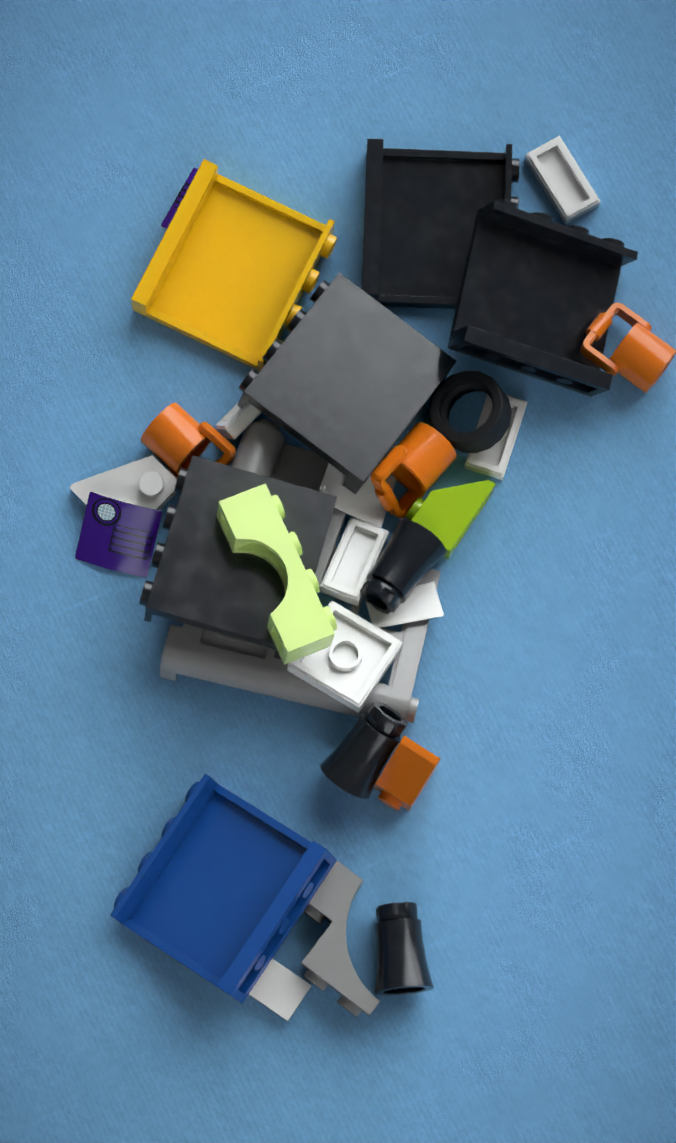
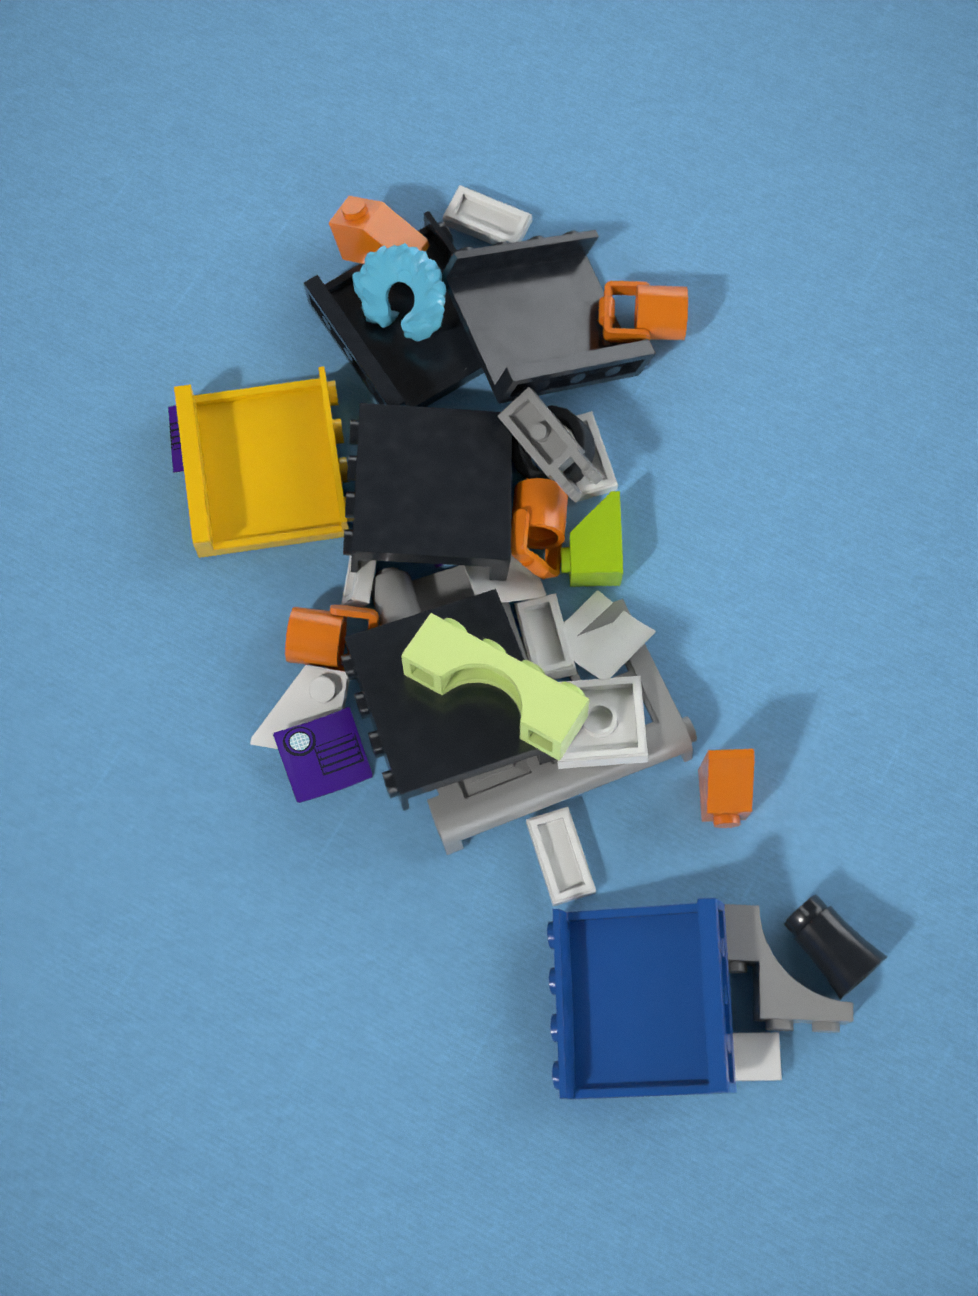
camera: 30 degrees left, 5 degrees down
(245, 738) = (560, 856): none -> white tile
(365, 750) = (677, 790): black plant -> none
(401, 565) = (590, 612): black plant -> none
(455, 137) = (367, 225): none -> orange slope
(460, 189) = (407, 266): none -> medium azure piece
(463, 407) = (547, 441): none -> light grey hinge

